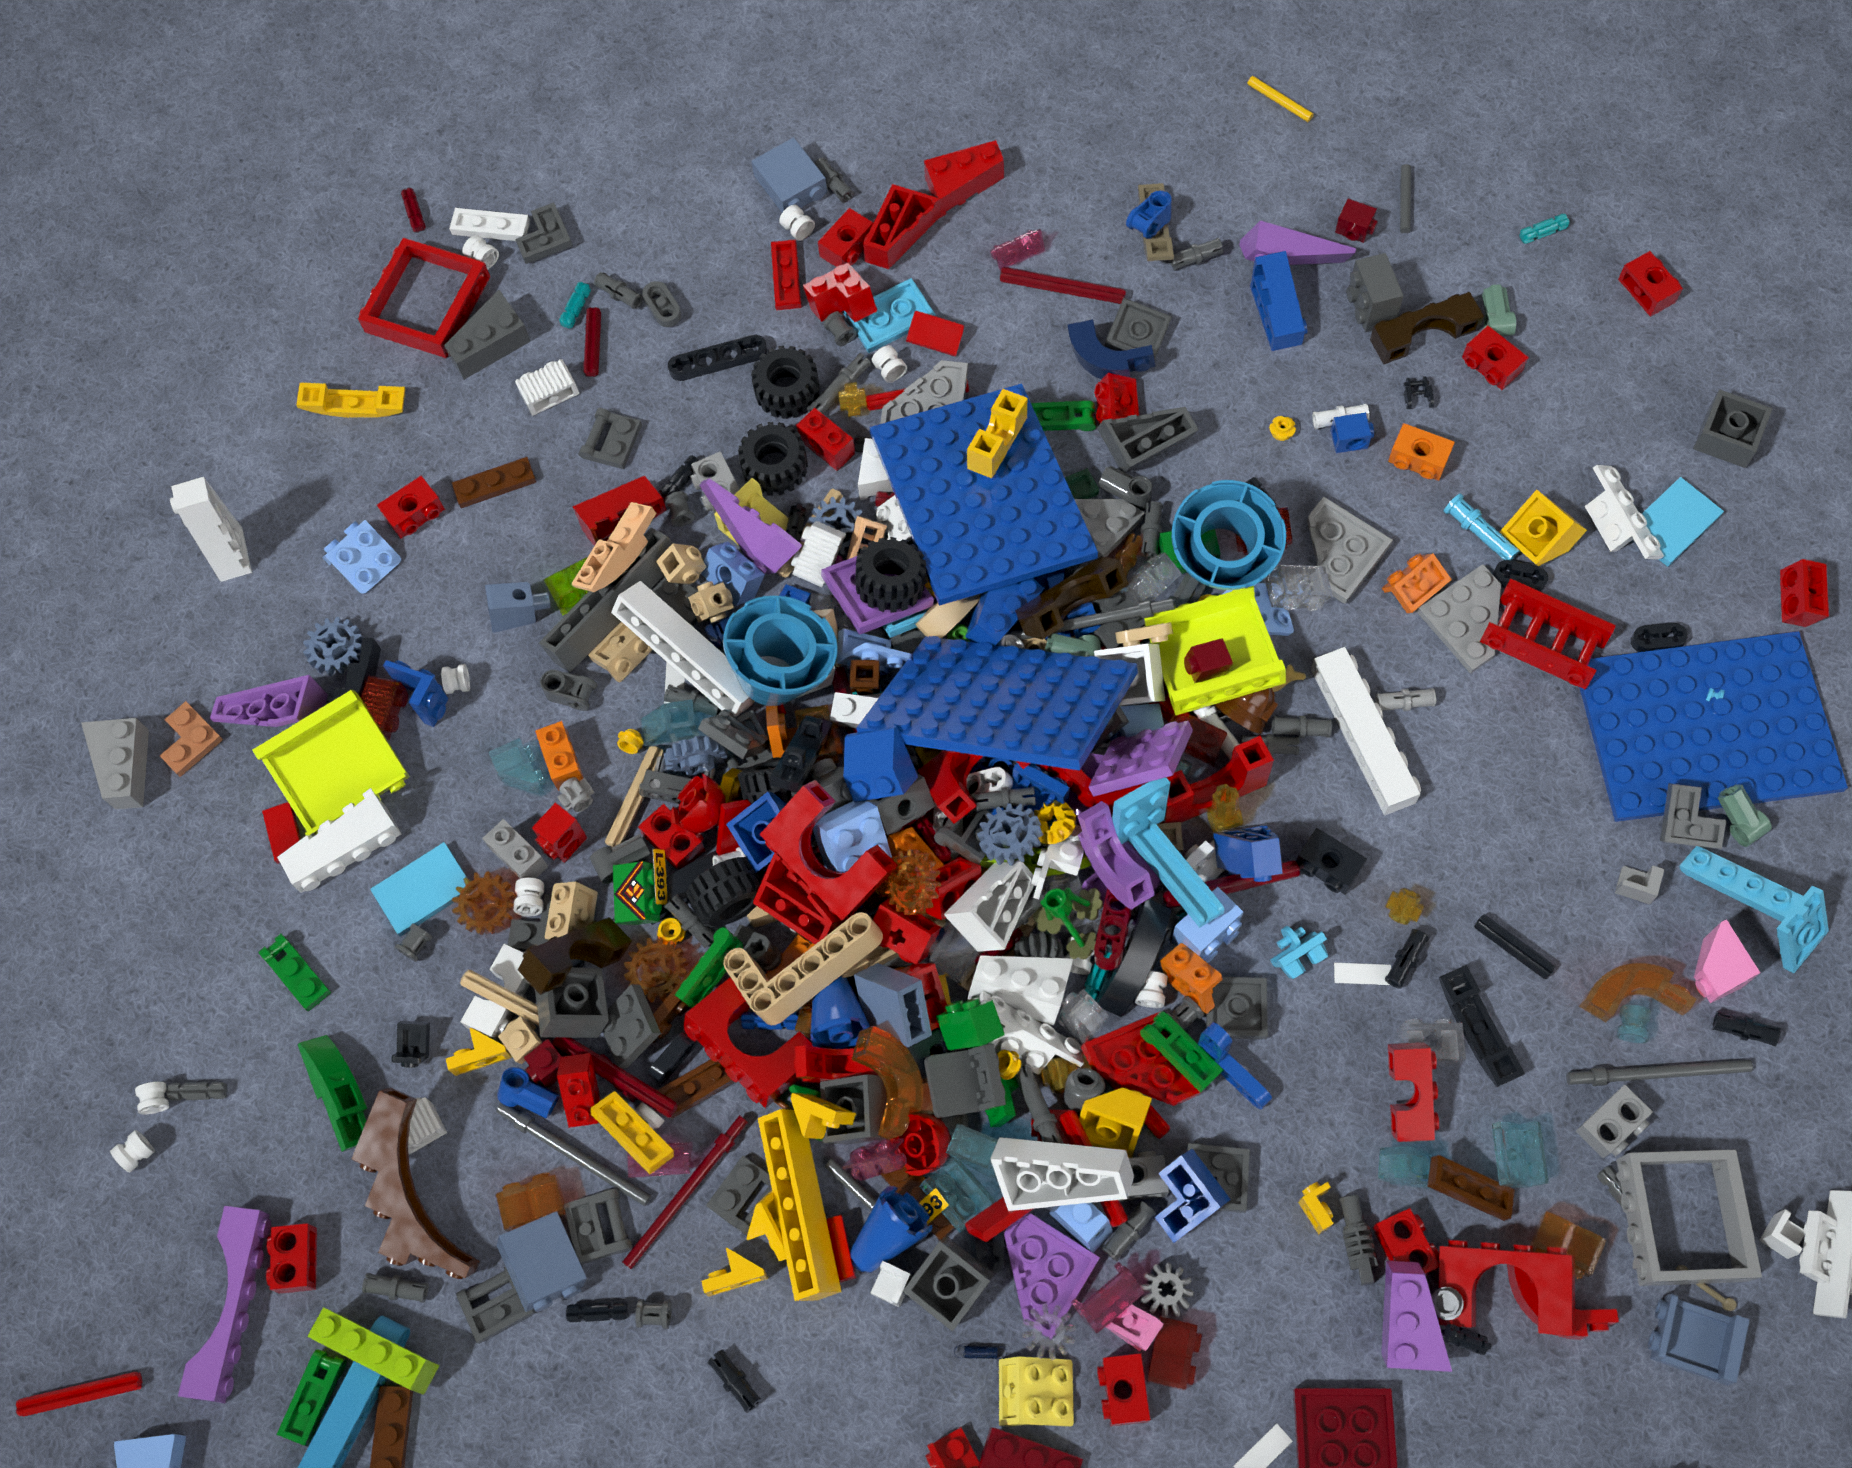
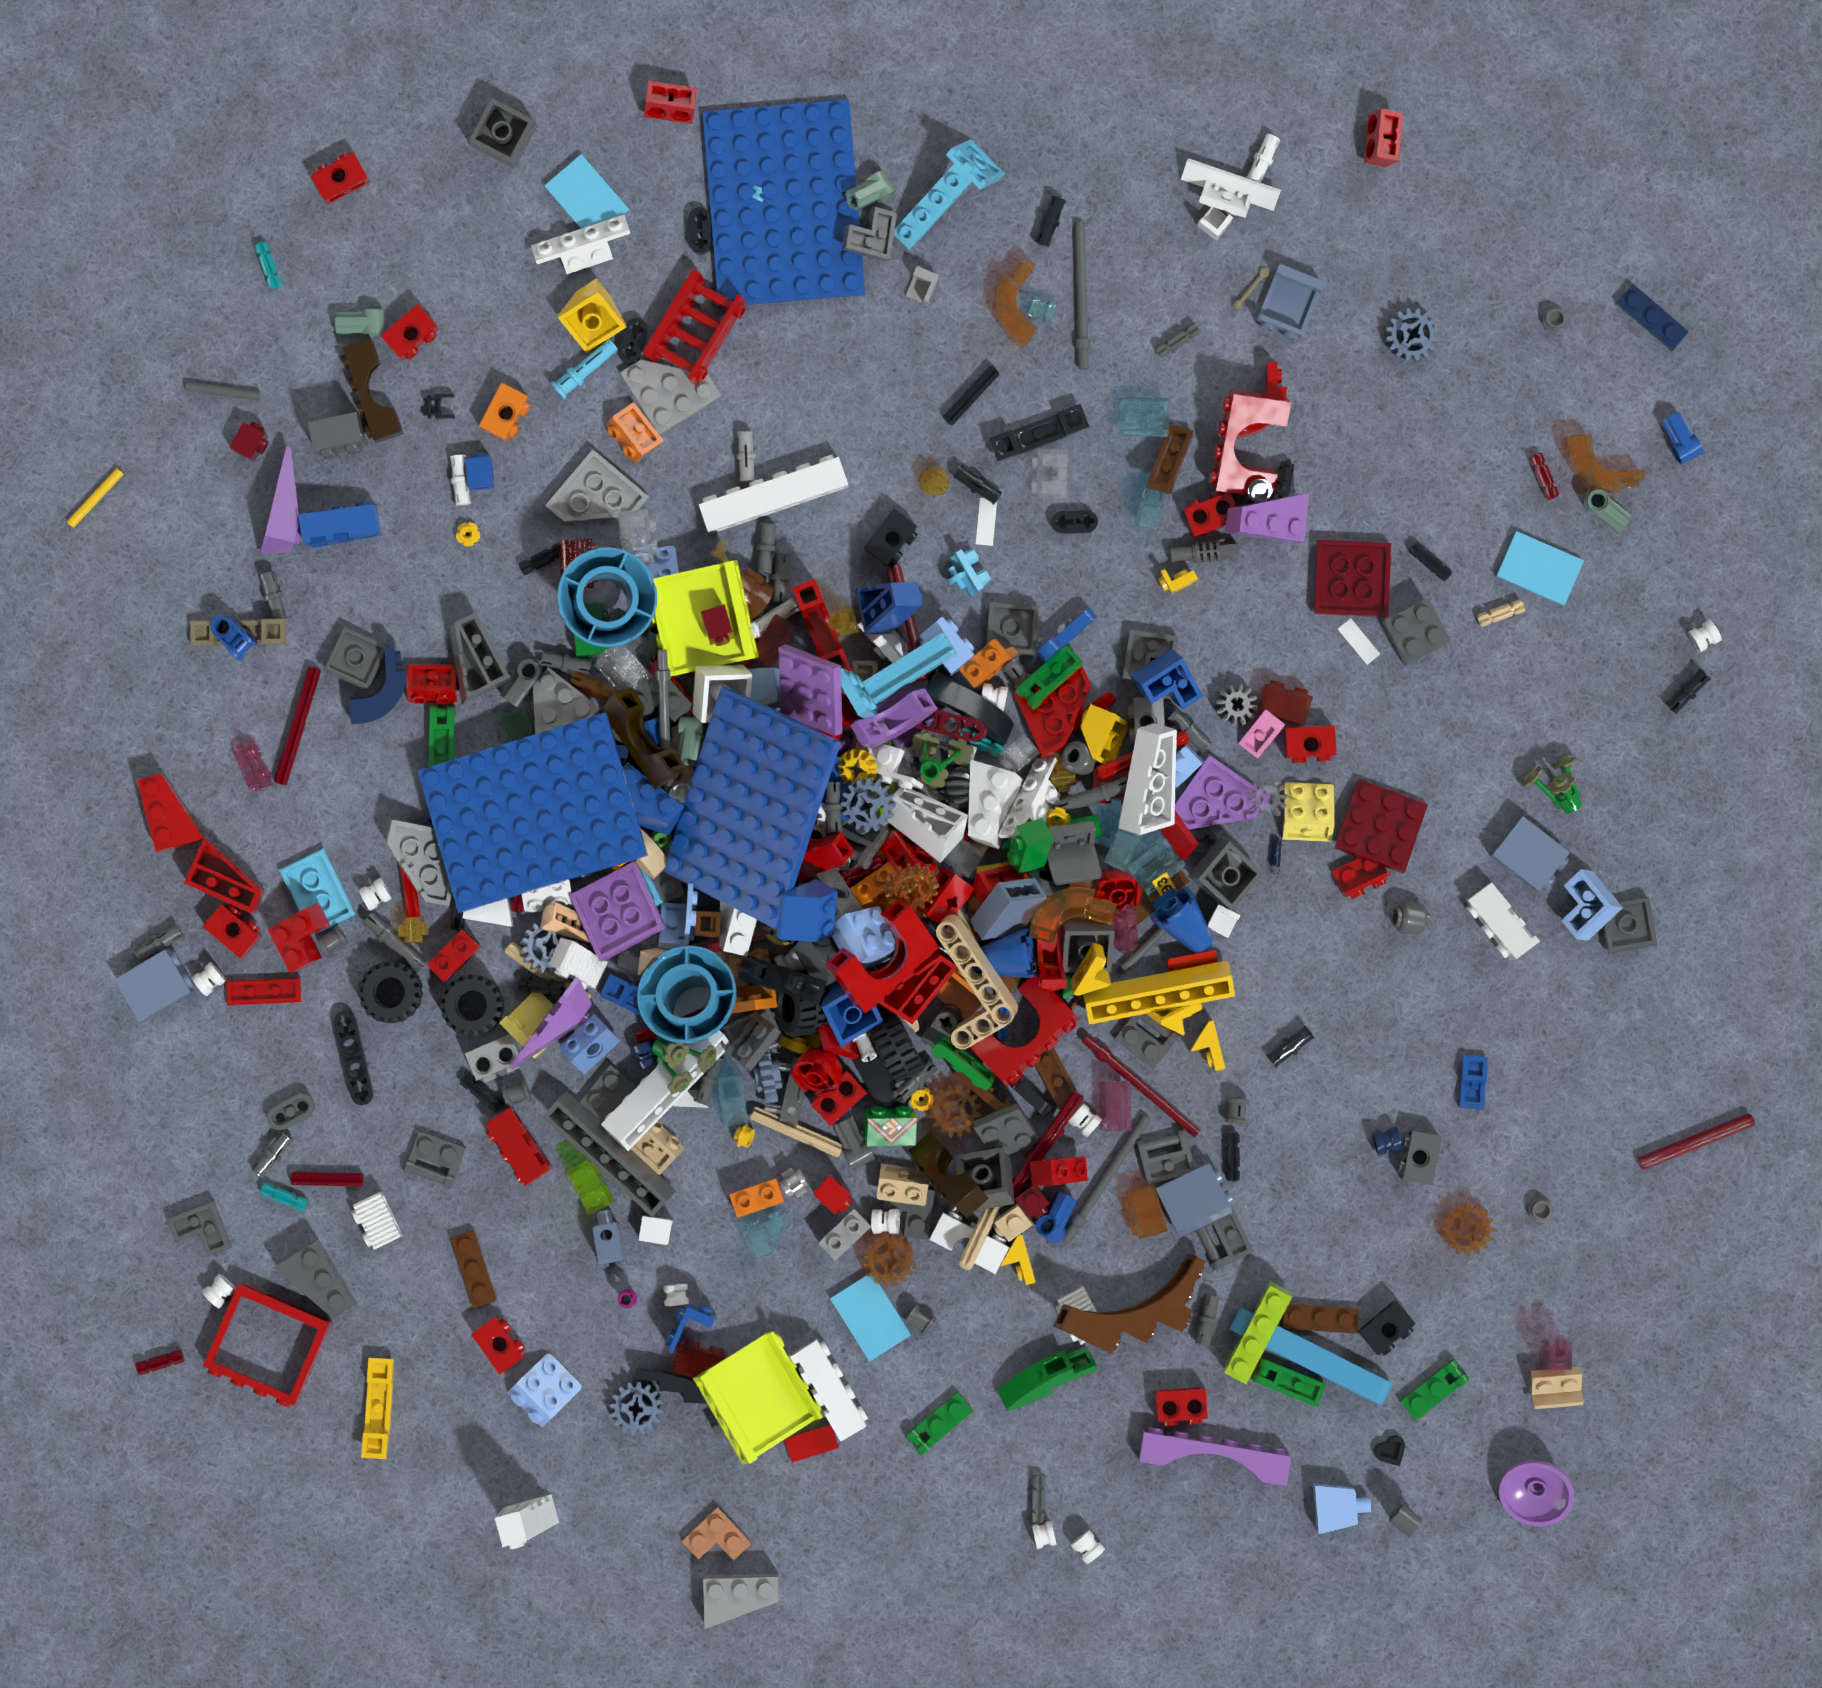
camera: 90 degrees left, 20 degrees up
(79, 1394) = (1278, 1571): red axle -> none
(271, 704) = (696, 1457): medium lavender wedge -> none
(412, 1043) = (1009, 1316): black bracket -> none
(451, 624) = (625, 1304): none -> magenta pin
(489, 224) = (185, 1283): white plate -> none
(527, 652) = (655, 1229): none -> white panel
(572, 692) = (693, 1190): dark grey piece -> none
(614, 556) = (571, 1144): light nougat slope -> none
(632, 1132) = (1098, 1125): yellow plate -> none
(660, 876) = (878, 1105): yellow sticker -> none
(681, 564) = (581, 1088): tan brick -> none
(711, 602) = (619, 1062): tan brick -> none
(712, 644) = (674, 1054): none -> olive plant
(893, 558) = (597, 890): black tyre -> none
(935, 333) = (346, 850): red slope -> none
(992, 445) = (485, 794): yellow arch -> none
(1109, 1299) = (1243, 749): clear pink hinge -> none
(1133, 636) = (683, 678): tan plate -> none
(1383, 1077) = (1073, 516): none -> black beam
(1416, 1117) = (1112, 495): red arch -> none
(1561, 1233) = (1214, 389): clear orange brick -> none
(1610, 1117) = (1116, 342): light grey brick -> none
(1723, 964) = (1000, 233): bright pink slope -> none
(1733, 1210) = (1200, 257): light grey window -> none

